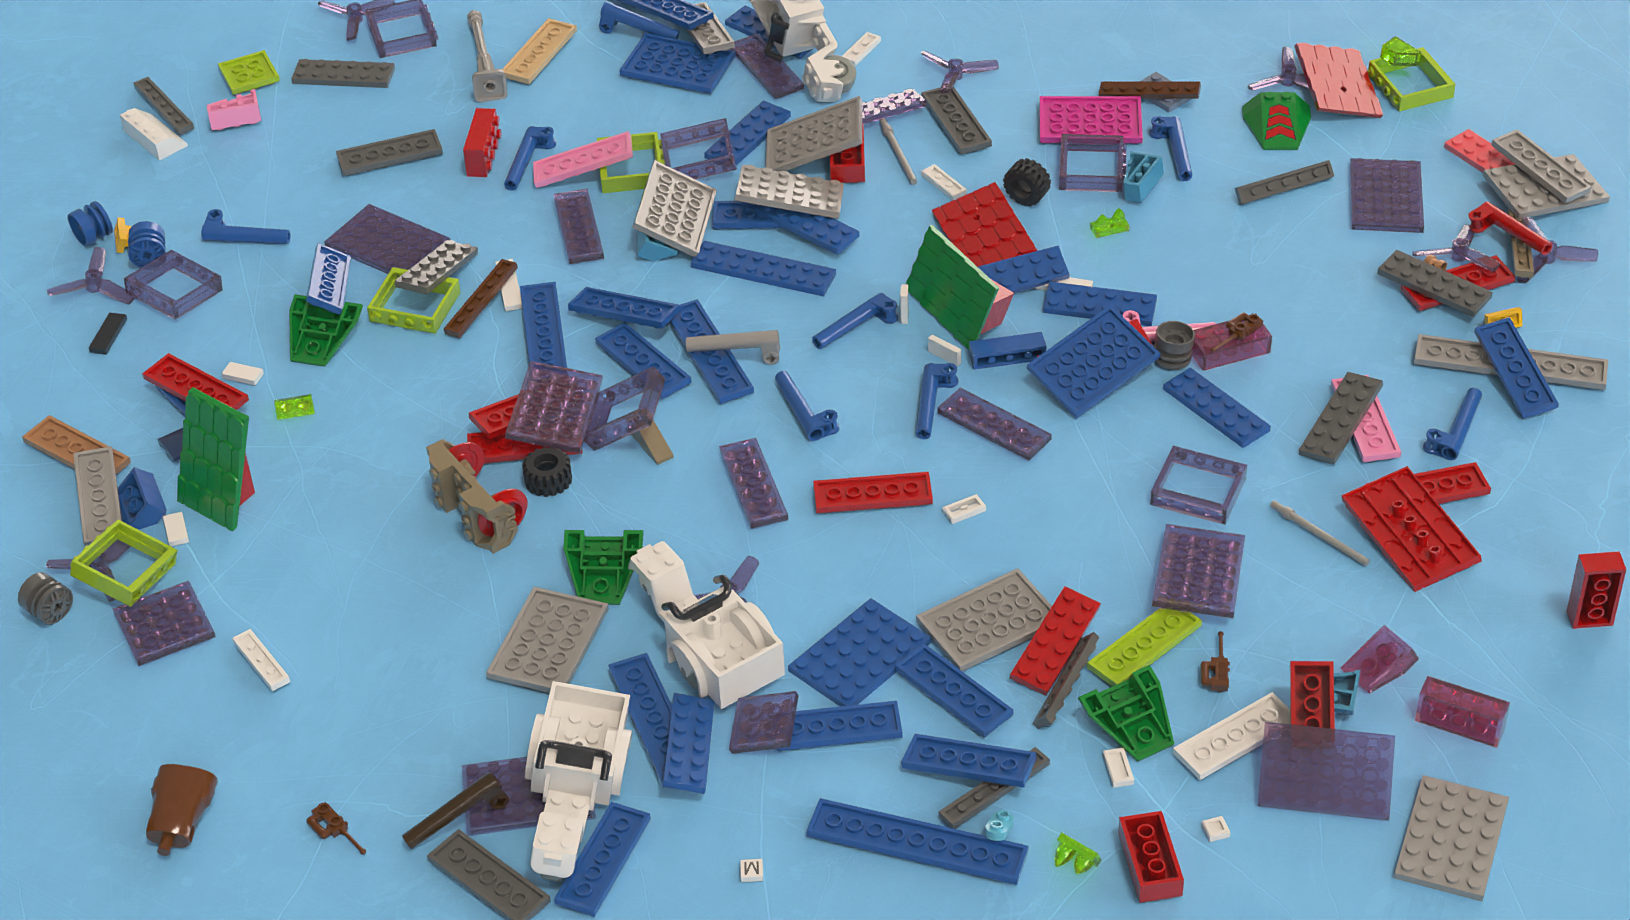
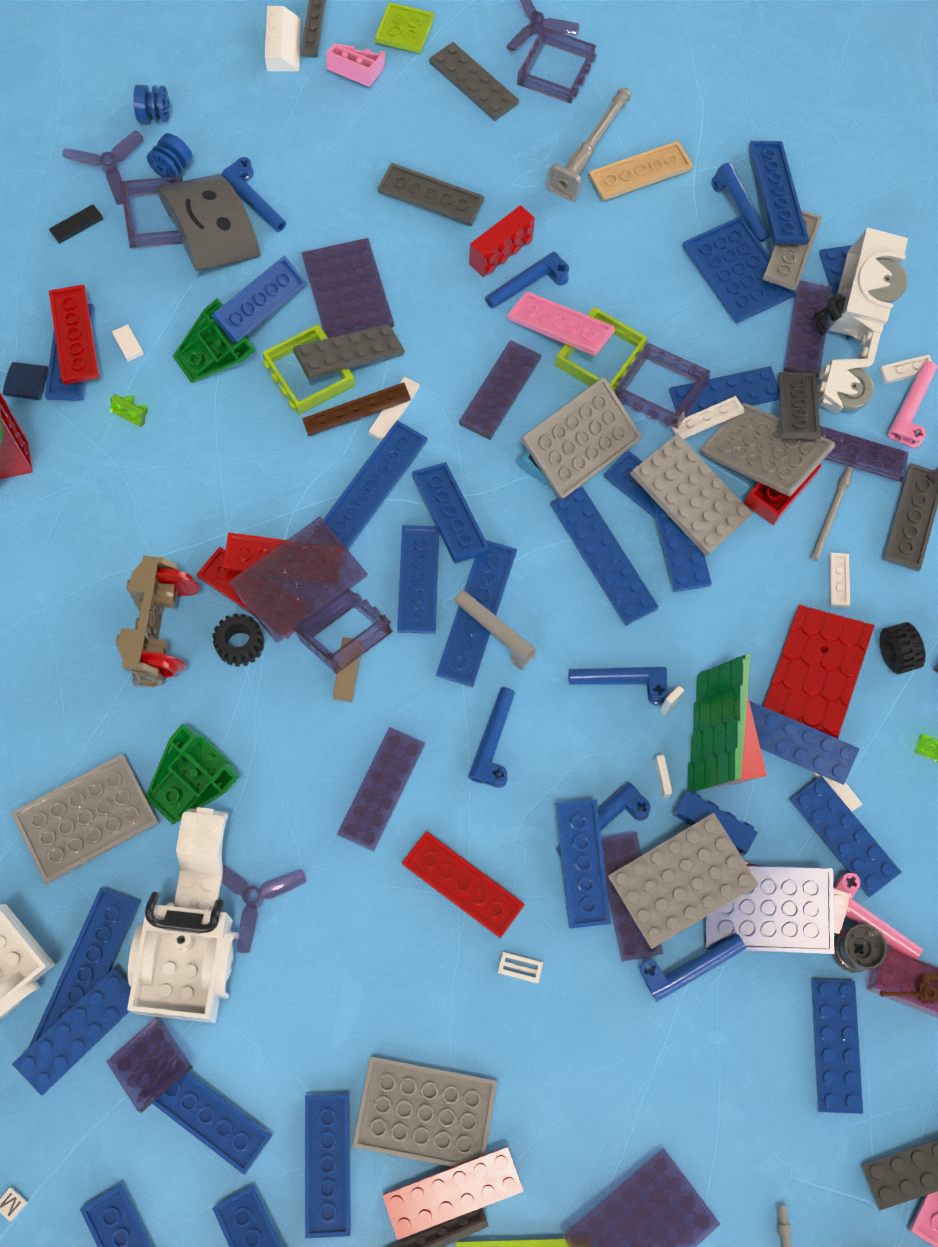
camera: 35 degrees right, 25 degrees up
(121, 235) = (173, 126): yellow tile -> none
(230, 255) = (210, 221): none -> dark grey slope
(753, 148) = (709, 417): none -> white plate
(811, 100) = (799, 406): none -> dark grey plate
(858, 654) = (295, 1051): blue plate -> none
(894, 78) = (902, 428): none -> bright pink axle
(943, 421) = (583, 863): none -> blue plate
(1020, 383) = (683, 880): none -> light grey plate
(1068, 449) = (664, 985): none -> blue axle
(1192, 505) = (705, 1142): clear purple window -> none

